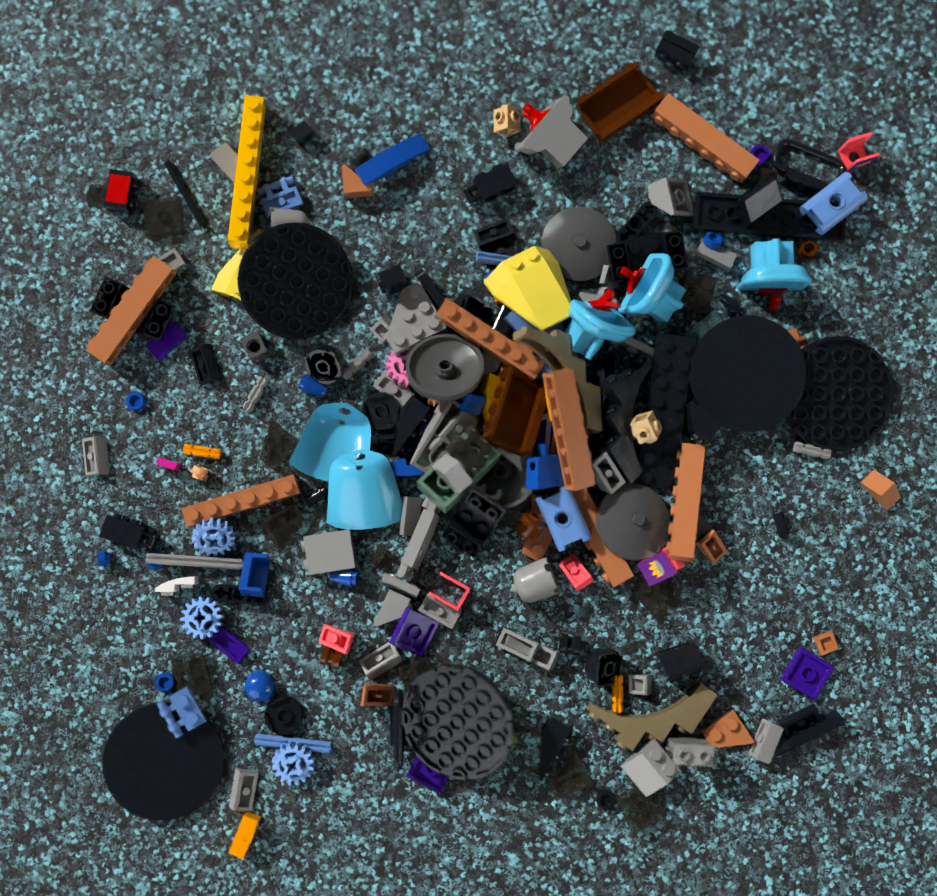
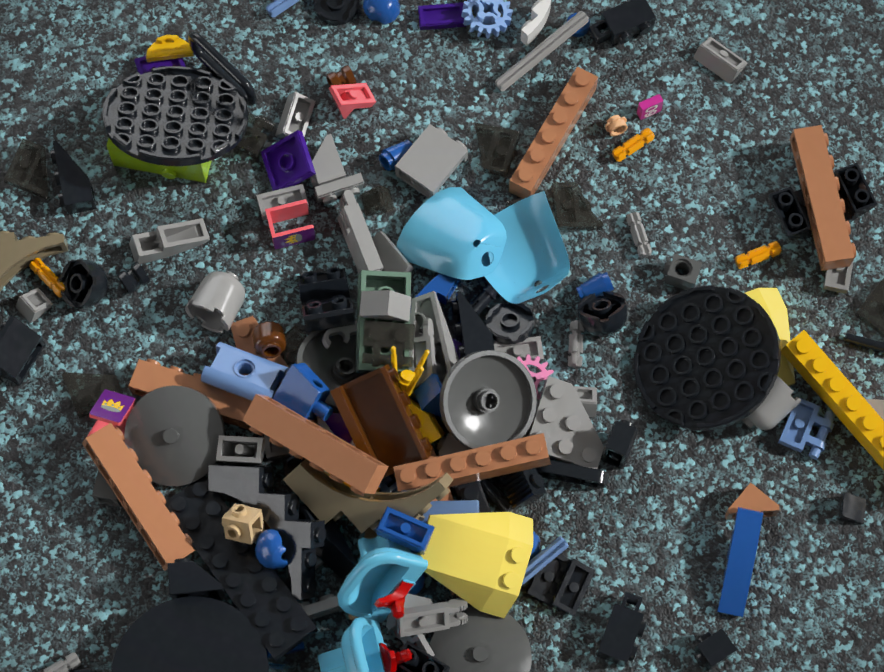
camera: 140 degrees right, 15 degrees down
(136, 401) = (736, 134): blue tile -> none
(171, 339) = (764, 214): dark purple tile -> none
(201, 317) = (757, 255): none -> light orange axle
(205, 364) = (710, 220): black slope -> none
(213, 537) = (545, 81): light blue gear -> none
(225, 598) = (478, 52): black beam -> none
(254, 574) = (477, 83): blue panel -> none
(316, 496) = (492, 197): black pin -> none
(360, 157) = (771, 539): clear smoke slope -> none
(377, 694) = (271, 84): nougat slope -> none
(414, 780) = (167, 48): none -> yellow tile
(453, 130) = (713, 649): none -> black brick
(477, 422) = (407, 377): none -> yellow plant
(564, 333) = (405, 530): none -> blue slope
(575, 572) = (187, 343): coral slope -> none
(586, 281) = (432, 617): none -> light grey hinge
(644, 399) = (269, 550): none -> blue hair
(711, 546) = (77, 484): nougat slope -> none
(781, 524) = (24, 568): black pin -> none

